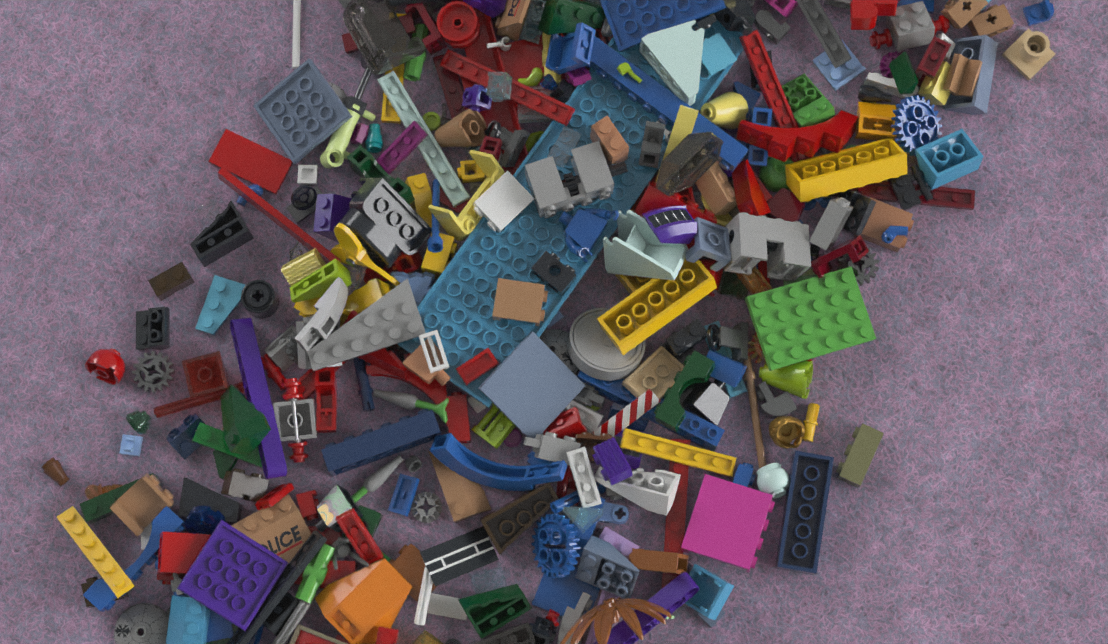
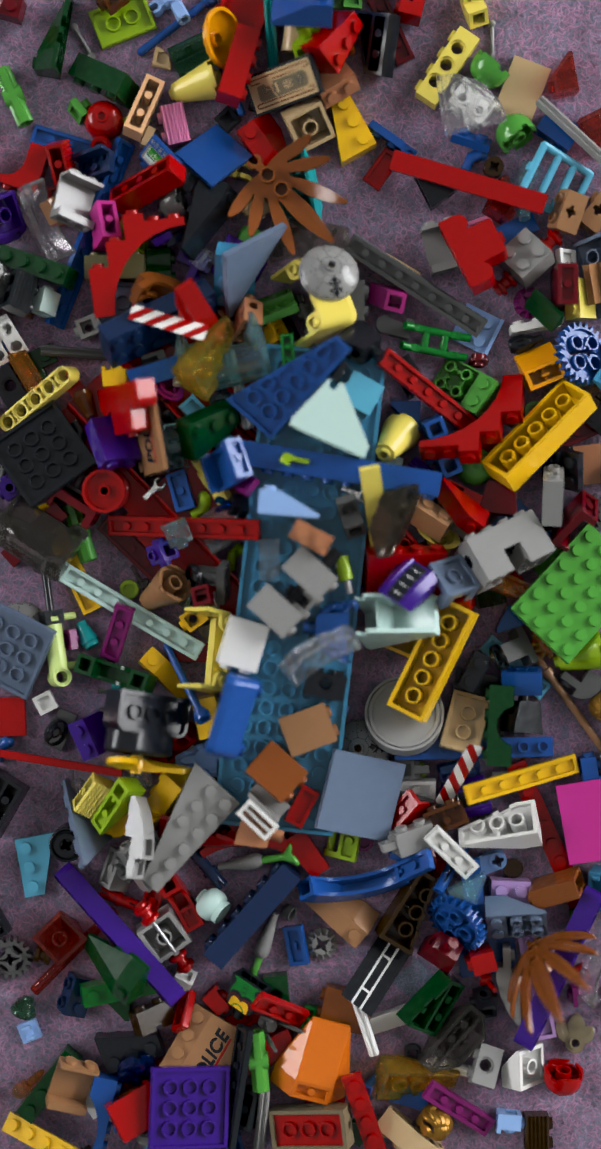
camera: 20 degrees left, 10 degrees up
(180, 384) = (41, 956): none -> dark brown wheel
(278, 297) = (87, 839): none -> sand blue tile
(293, 471) = (186, 980): none -> white tile
(351, 419) = (212, 905): none -> light aqua piece
(452, 345) = (267, 803): none -> light grey panel
(460, 250) = (233, 715): none -> blue windscreen
(471, 323) = (276, 772): none -> dark orange brick
(520, 57) = (181, 490): none -> blue plate
(528, 567) = (441, 950): none -> dark red torso
(558, 590) = (481, 960): none -> red brick
(562, 235) = (318, 652): none -> clear windscreen
(597, 103) = (280, 504): none -> light blue slope
(613, 462) = (469, 825): dark purple brick -> none
(621, 189) = (344, 573): none -> lime piece
(629, 531) = (513, 868): none -> dark brown tile
(739, 314) = (507, 620): none -> blue slope
(809, 53) = (445, 336): none -> green piece
(827, 88) = (478, 360): none -> dark red plate

